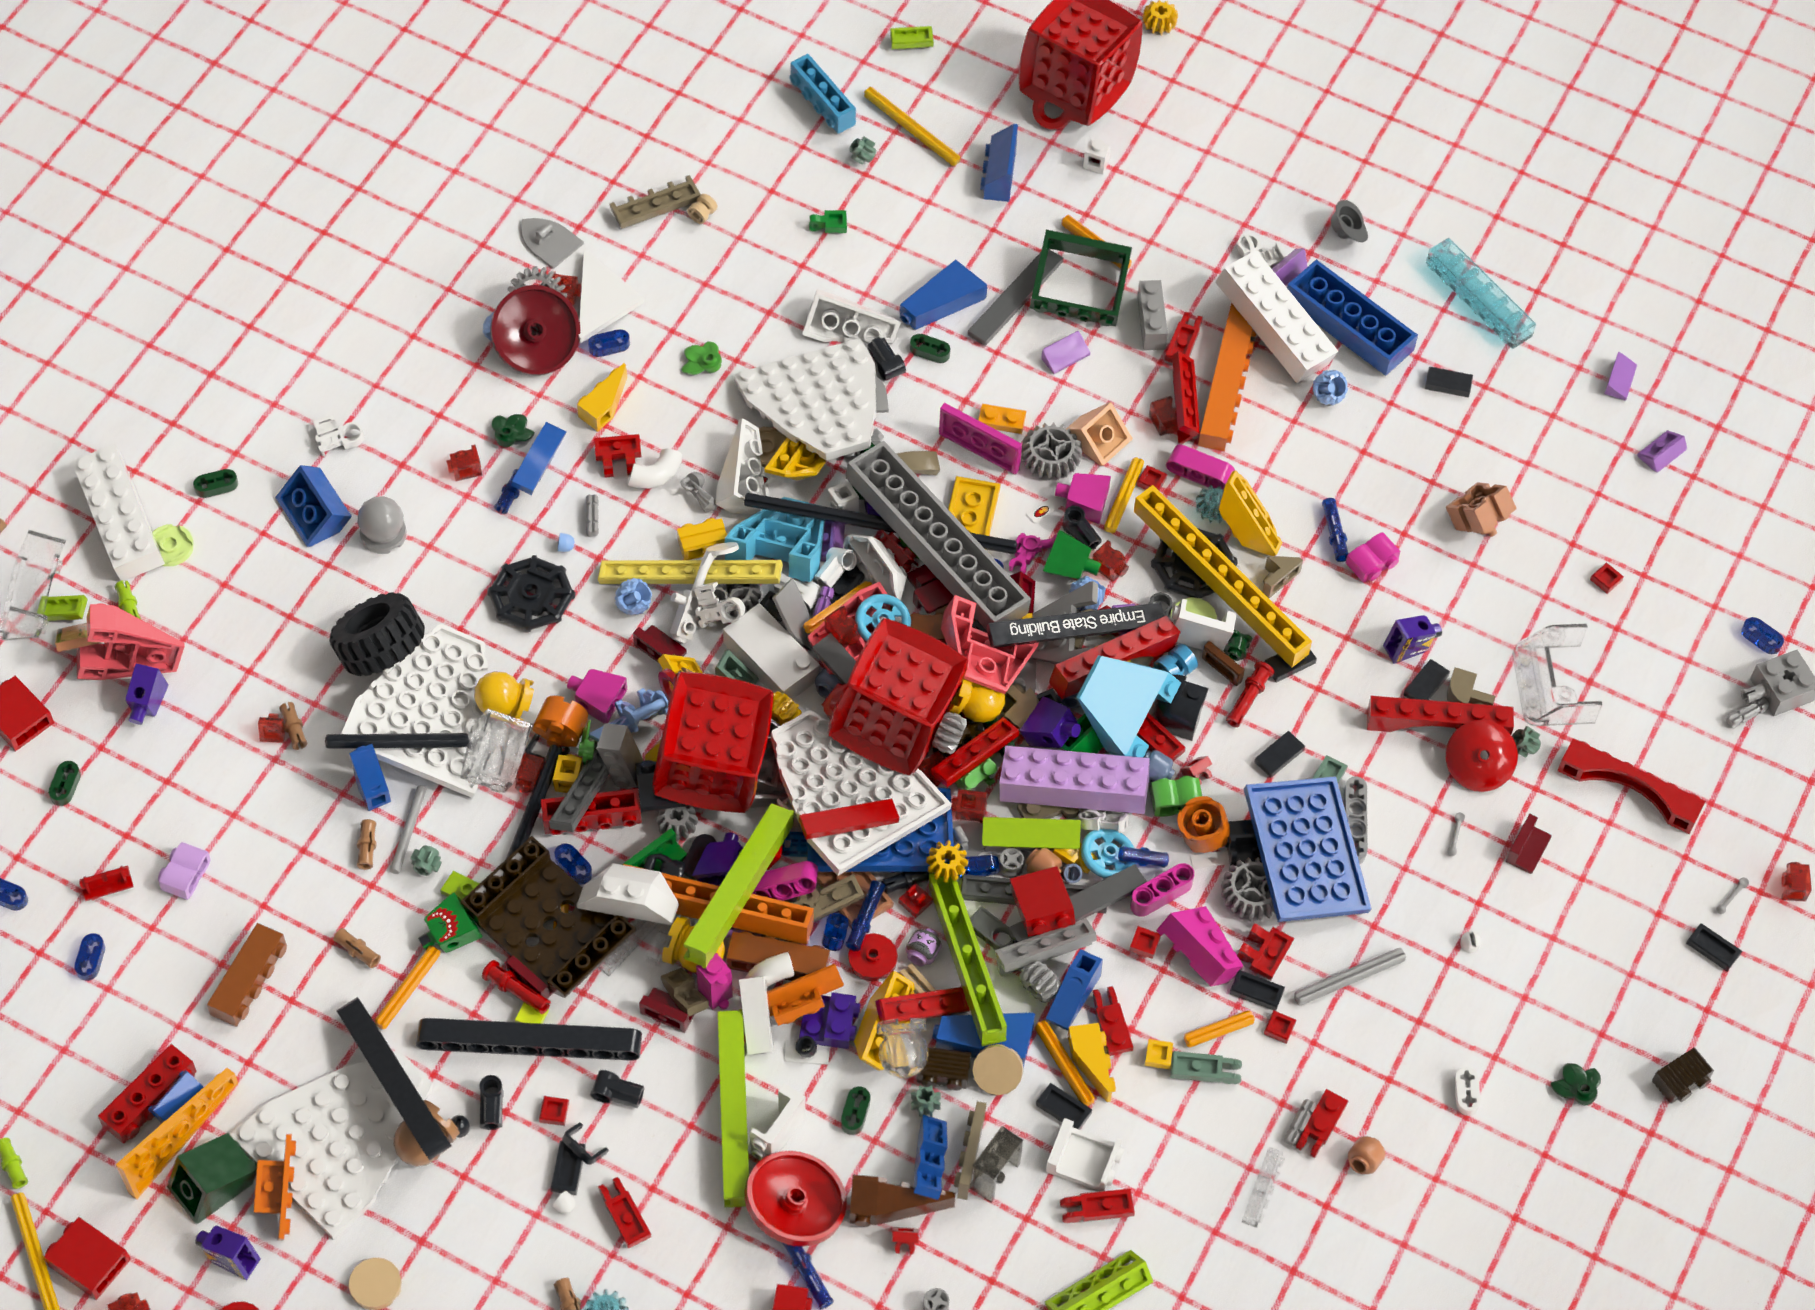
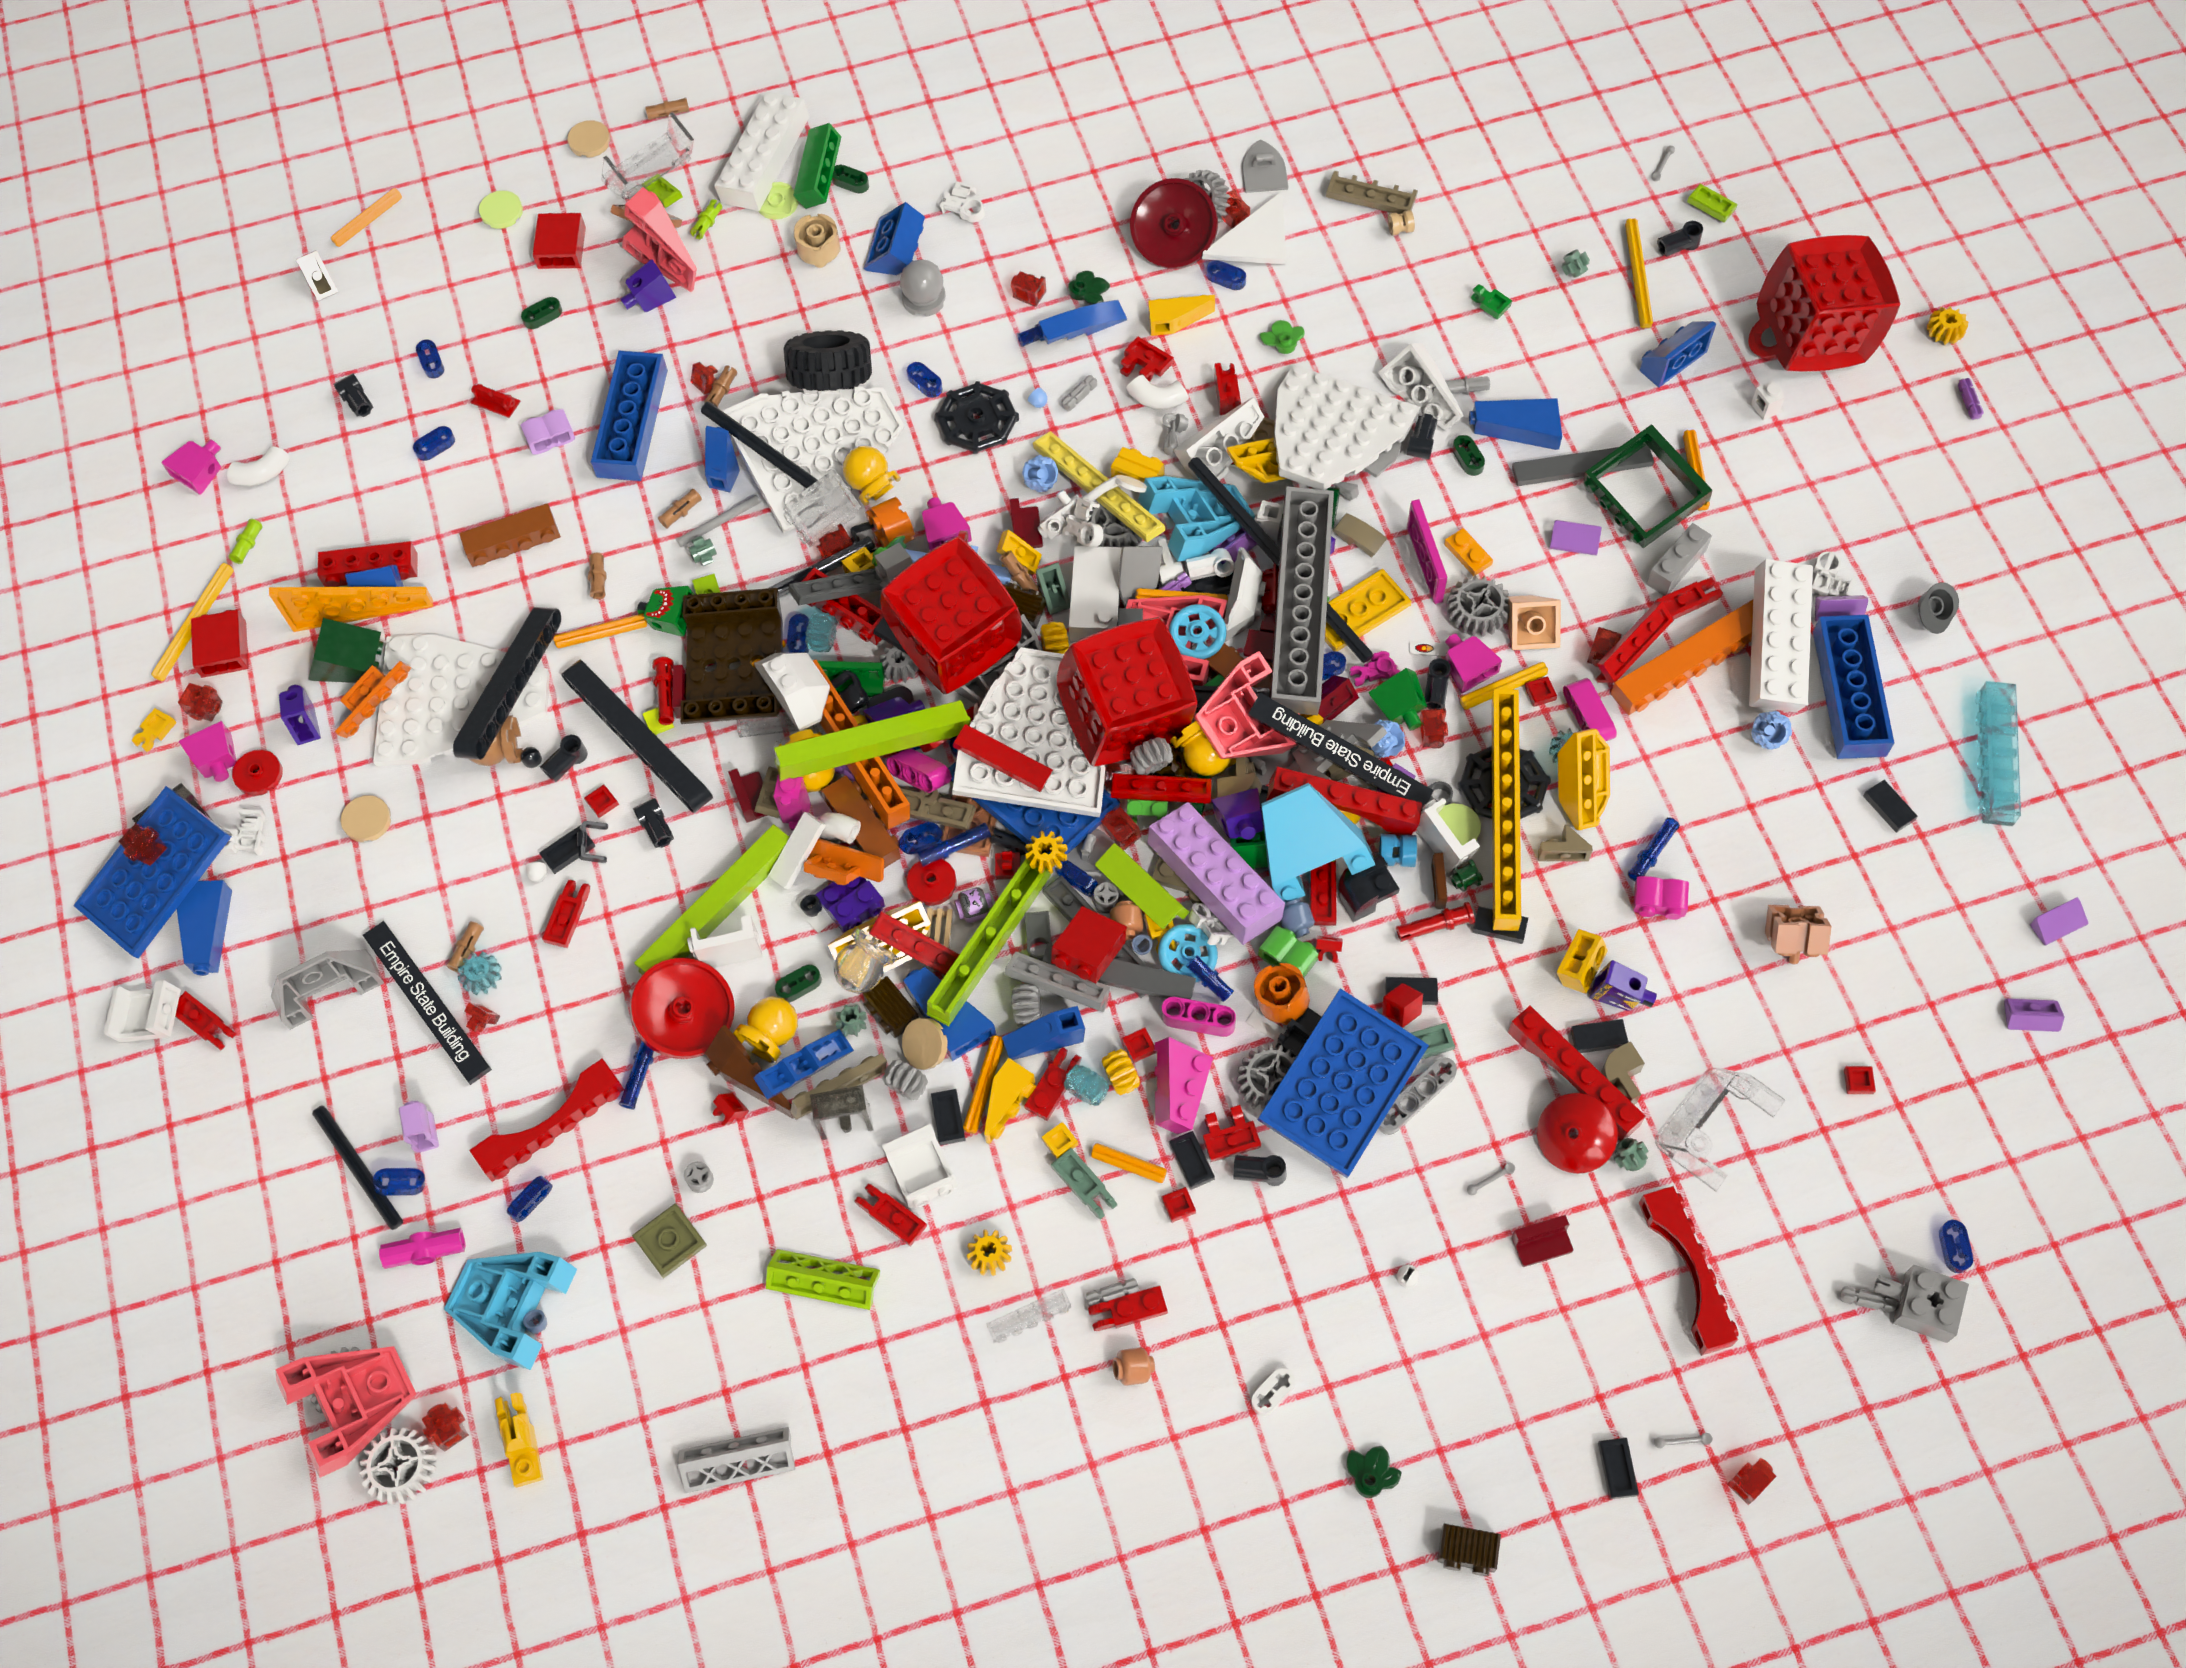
camera: 50 degrees right, 5 degrees up
(180, 491) = (817, 166): none -> green brick
(246, 803) = (629, 416): none -> blue brick
(248, 550) = (817, 239): none -> tan brick
(456, 595) = (921, 382): none -> clear blue beam
(594, 845) = (821, 632): none -> clear light blue gear
(703, 430) = (1226, 388): none -> red hinge
(822, 93) = (1588, 197): dark azure brick -> none
(842, 627) = (1157, 606): clear red brick -> none
(849, 43) = (1656, 175): none -> light grey hinge
(876, 297) = (1468, 384): none -> light grey axle
(876, 1153) = (768, 1025): none -> yellow tile
(918, 80) = (1685, 238): none -> black piece
(1012, 1105) = (905, 1079): none -> light grey gear
(1140, 999) = (1086, 1085): none -> clear light blue gear
(1153, 970) = (1120, 1072): none -> yellow gear
(1195, 1160) = (984, 1245): none -> yellow gear
(1224, 59) = (1970, 398): none -> medium lavender axle
(1286, 765) = (1402, 1005): none -> red panel
(1308, 955) = (1256, 1168): none -> black piece
(1349, 976) = (1277, 1215): light grey axle -> none
(1370, 640) = (1582, 961): none -> yellow brick

